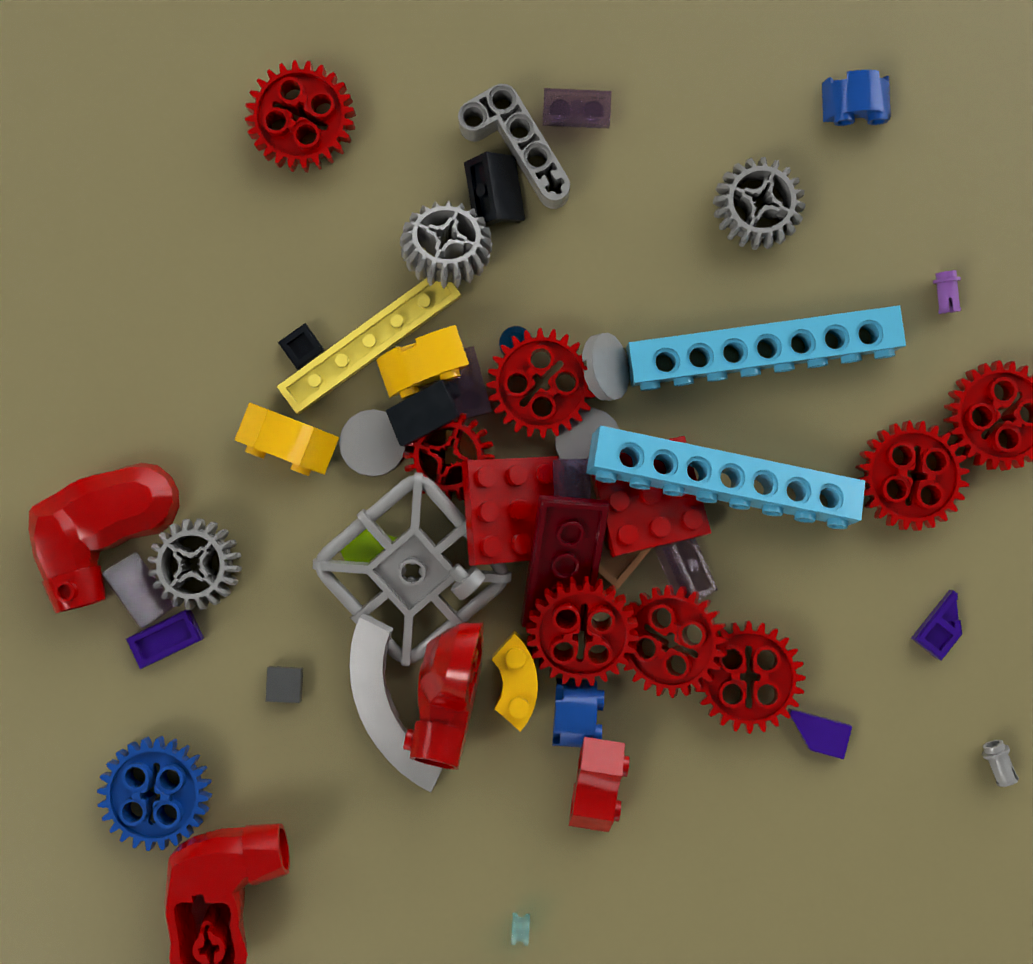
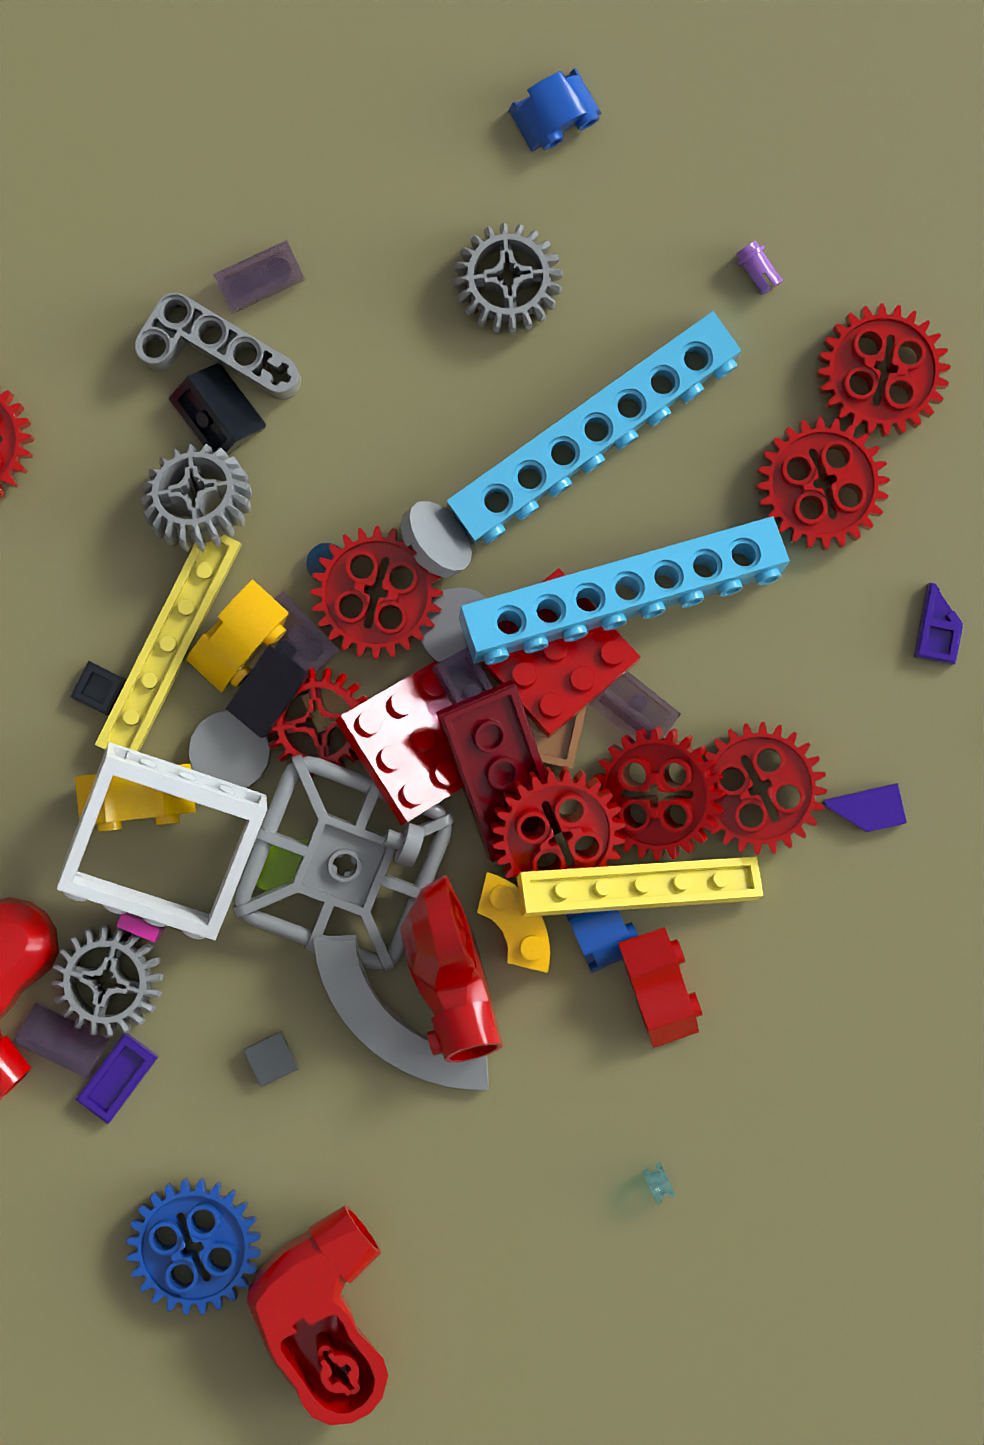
camera: 35 degrees left, 0 degrees up
(240, 537) = (138, 926): none -> dark pink tile
(322, 448) = (181, 783): none -> white window
(621, 703) = (639, 886): none -> light yellow plate

